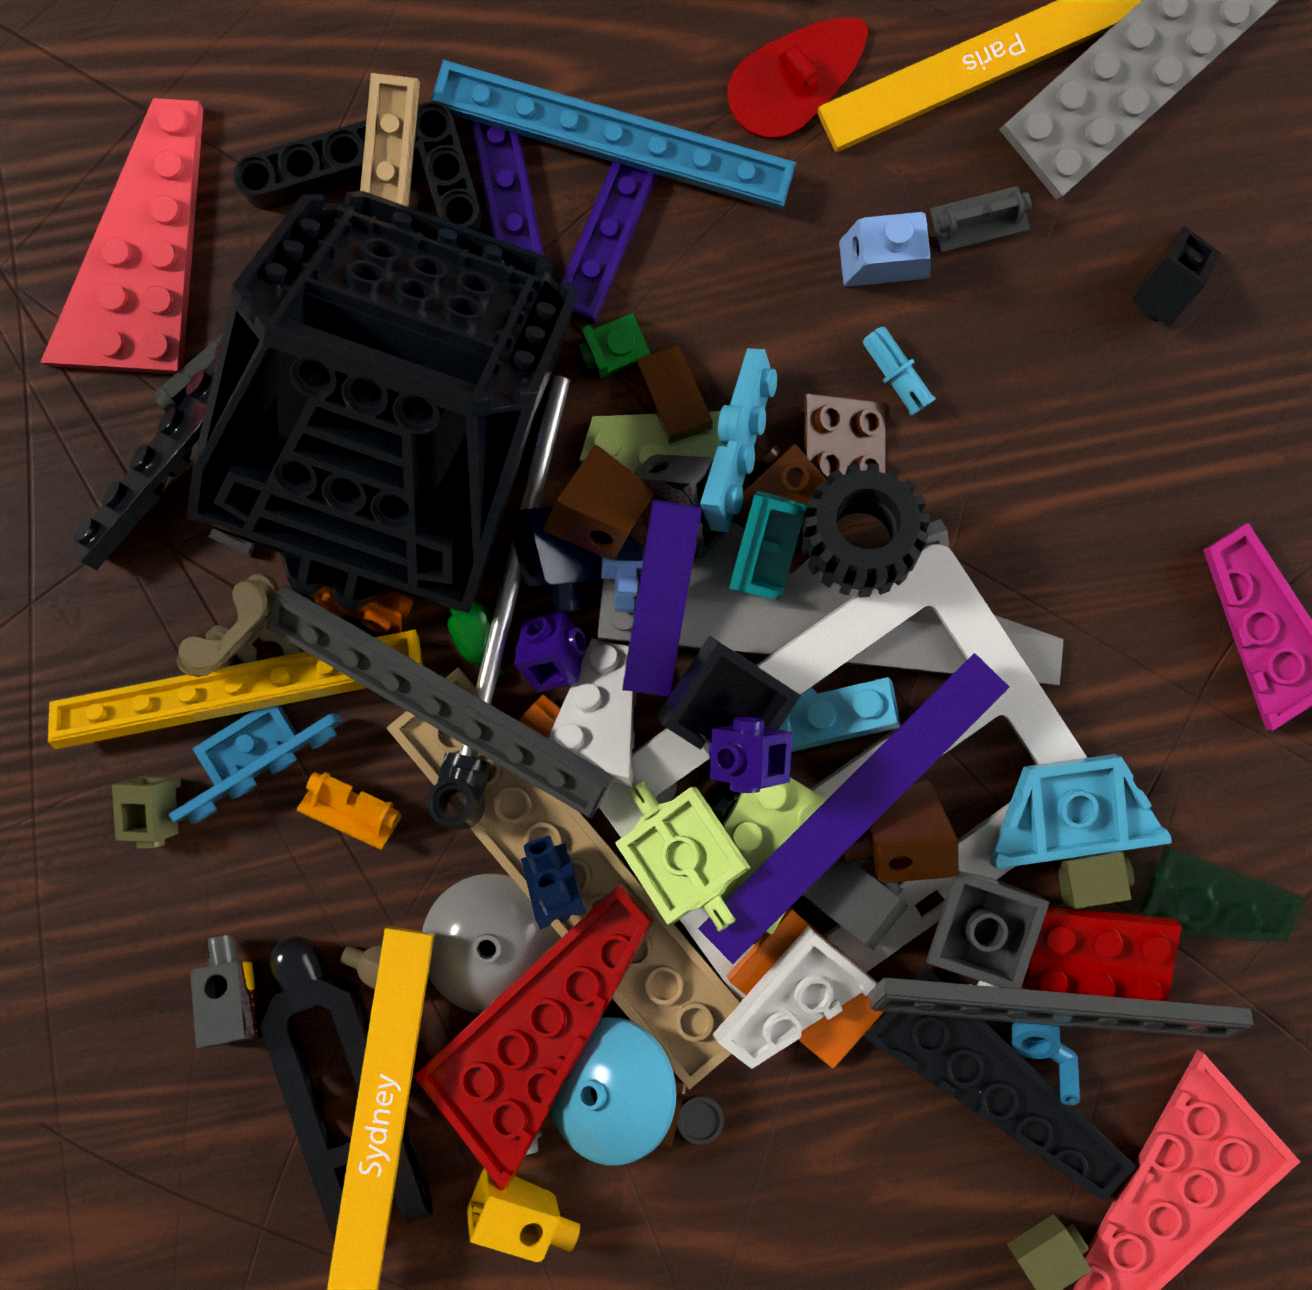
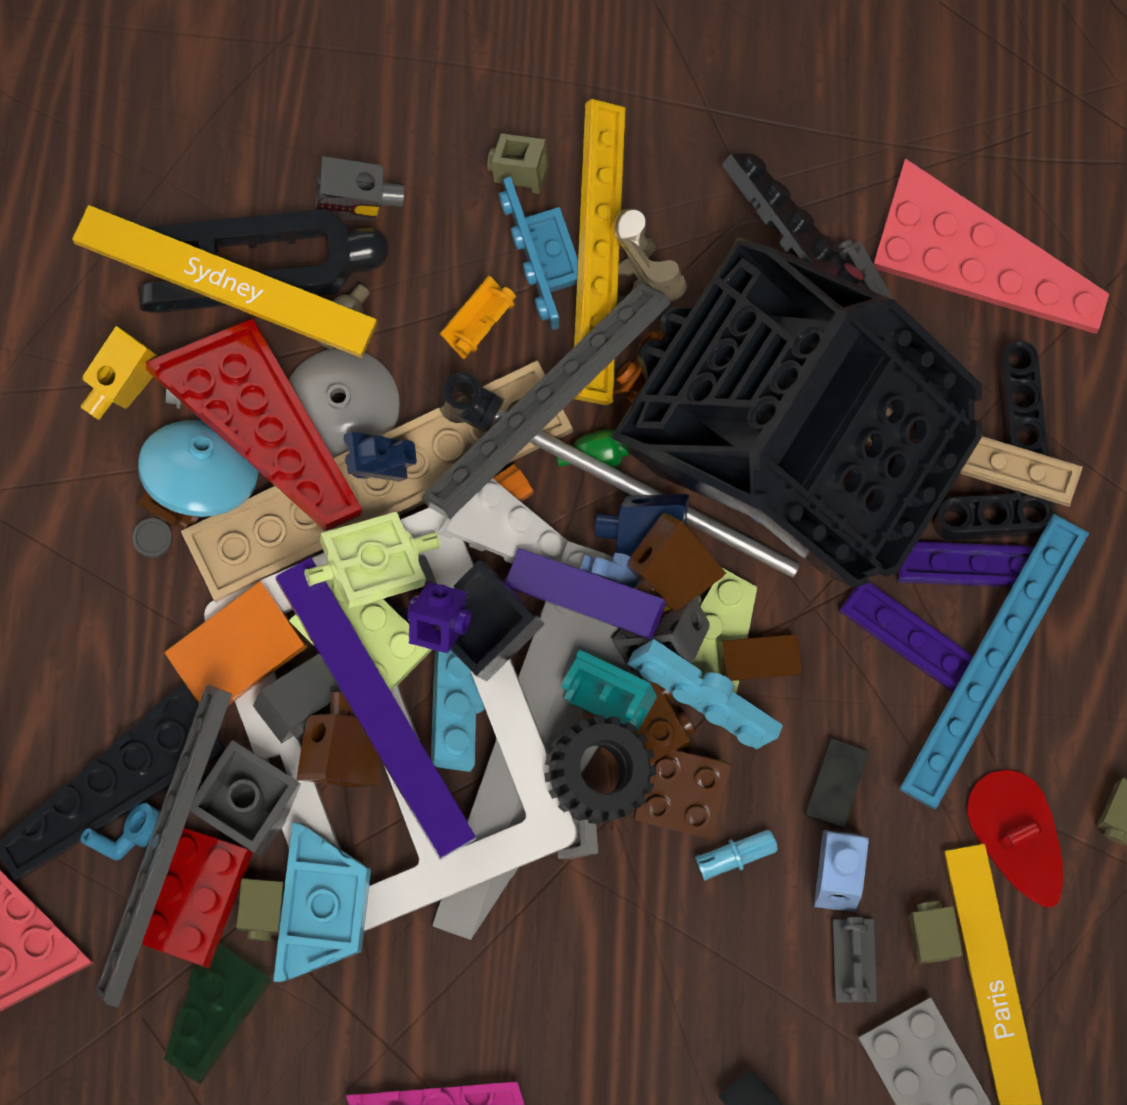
camera: 100 degrees right, 10 degrees down
(550, 651) = (566, 502): dark purple brick -> none
(613, 346) = (813, 618): green bracket -> none
(791, 280) = (837, 783): none -> pearl dark grey tile
(795, 993) = (235, 629): white wing -> none
(933, 137) = (934, 933): none -> olive brick

